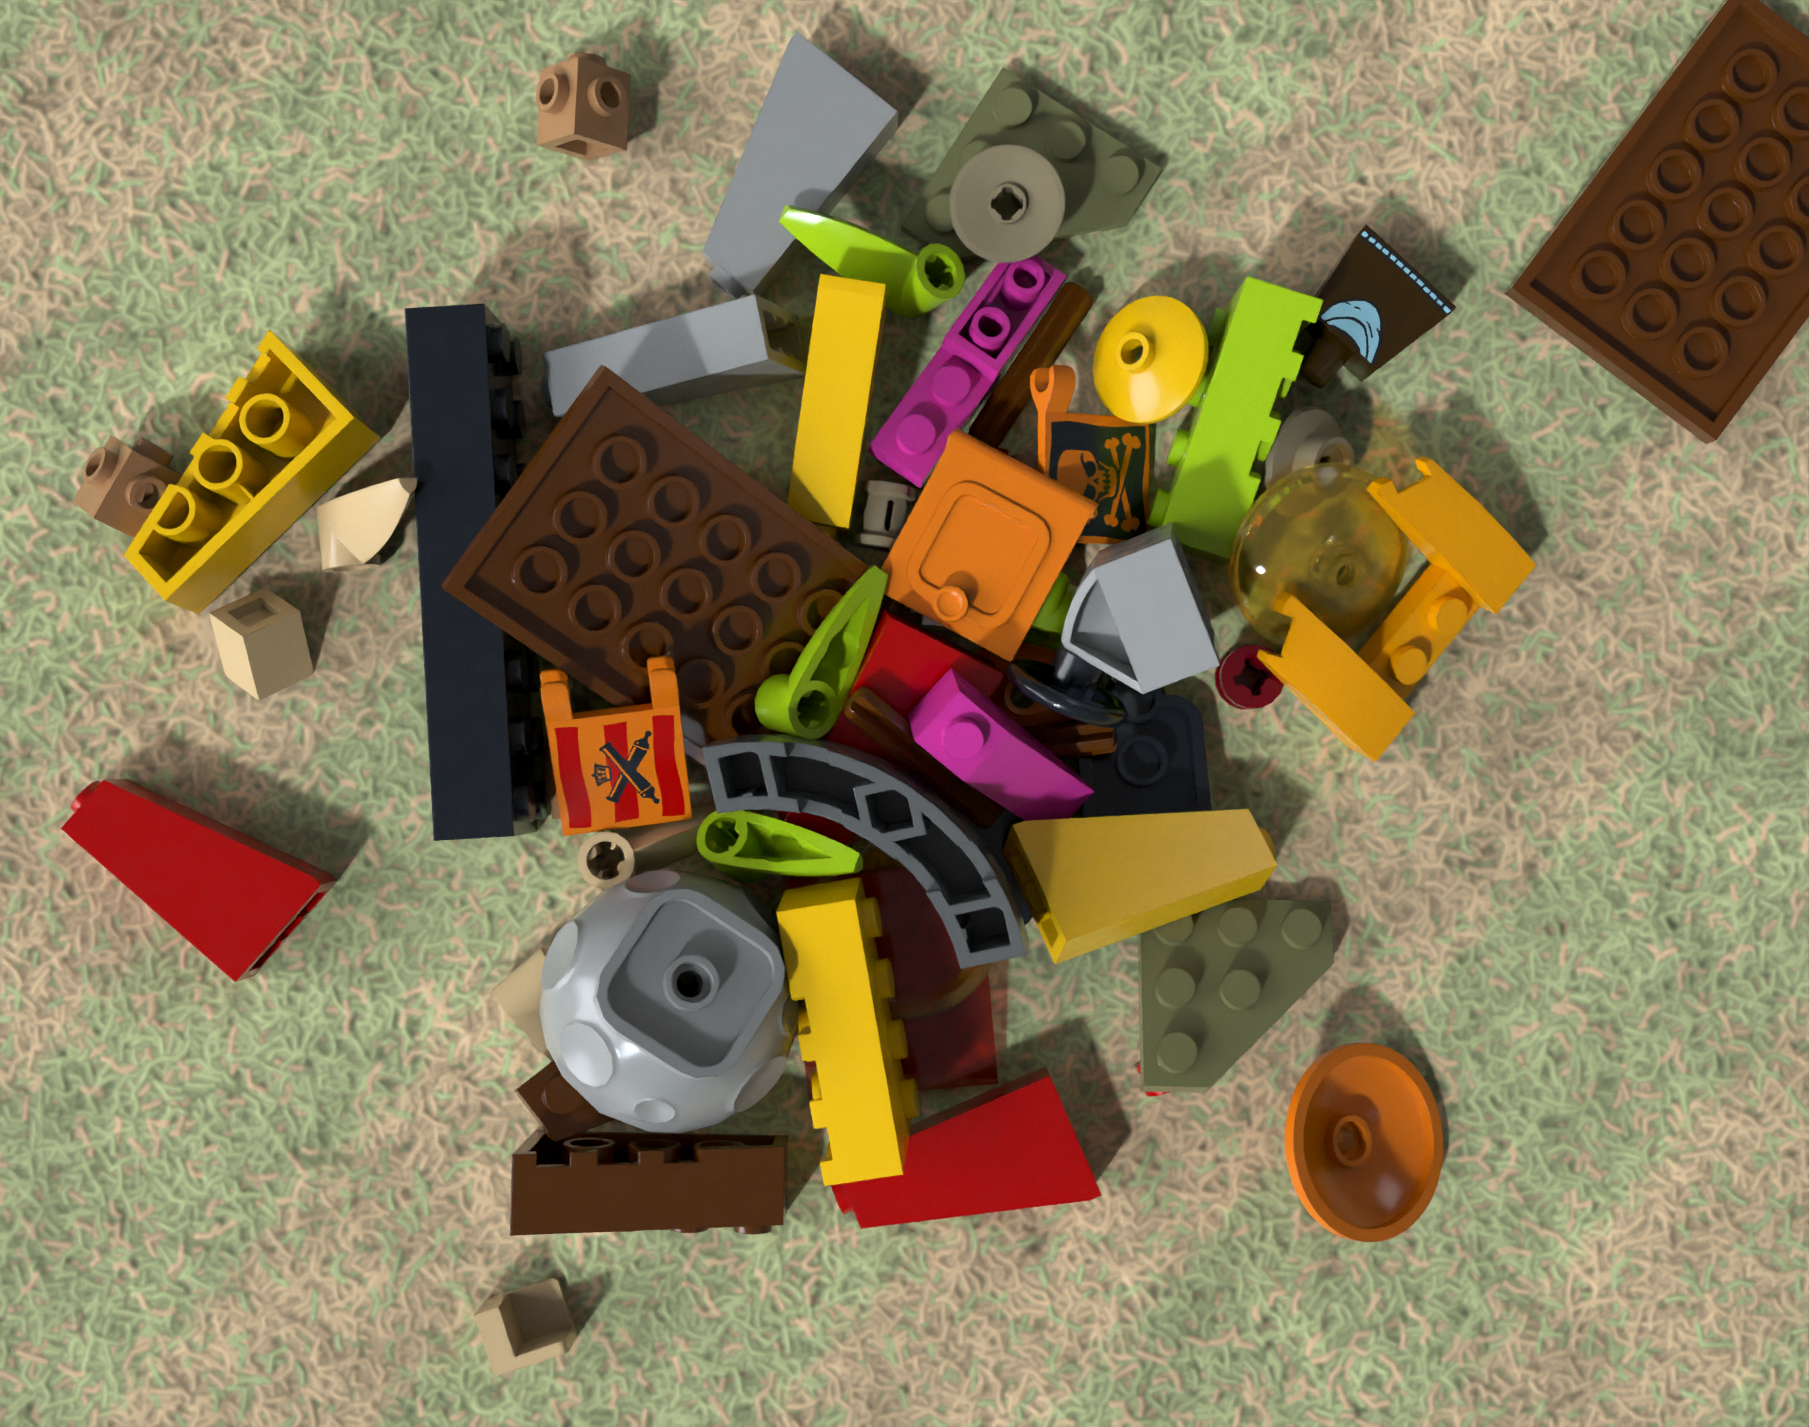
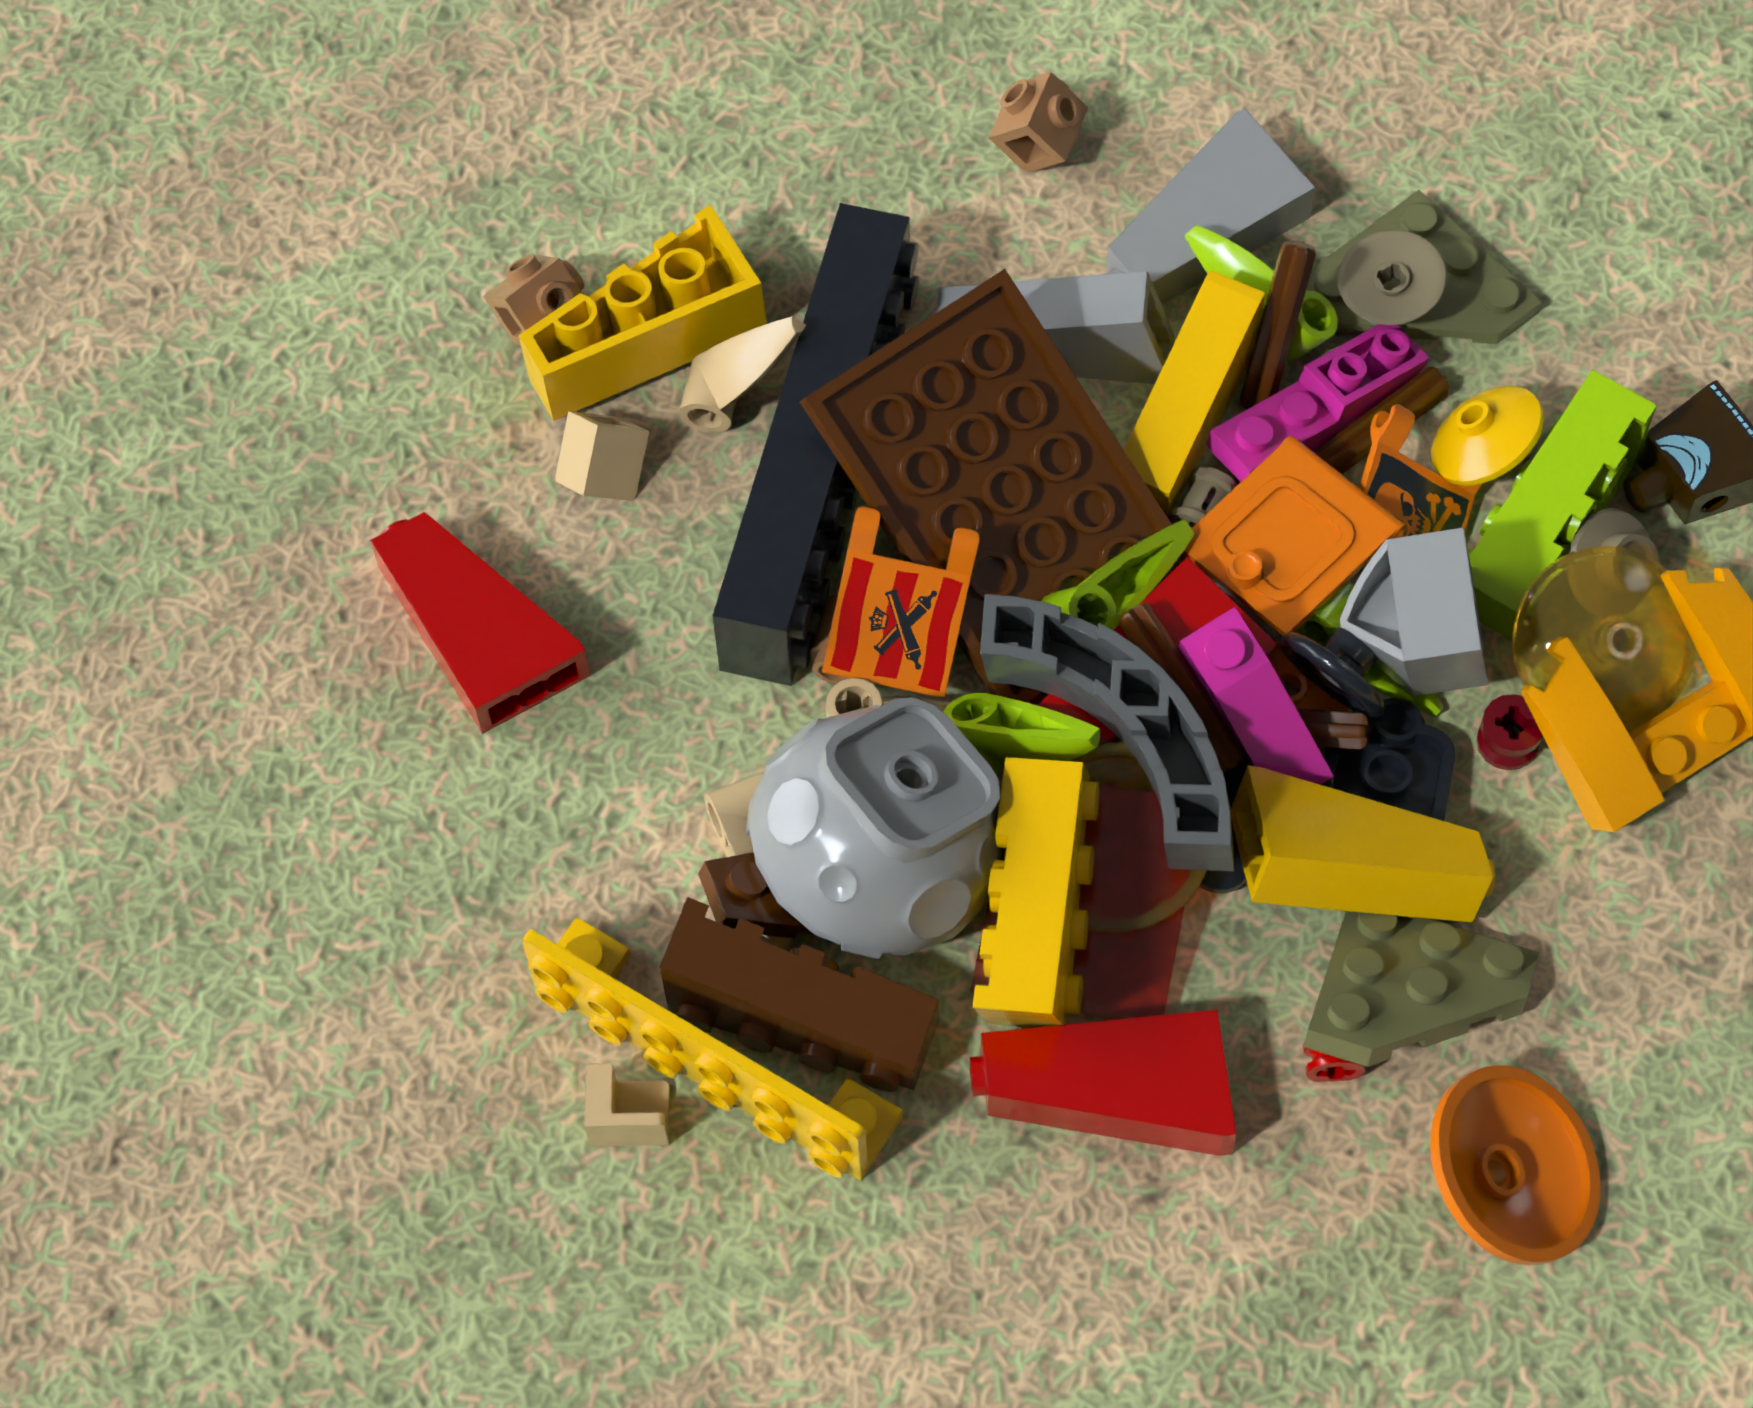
camera: 20 degrees right, 25 degrees down
(432, 1231) = (582, 976): none -> yellow bracket
(905, 300) = (1278, 322): none -> reddish brown axle

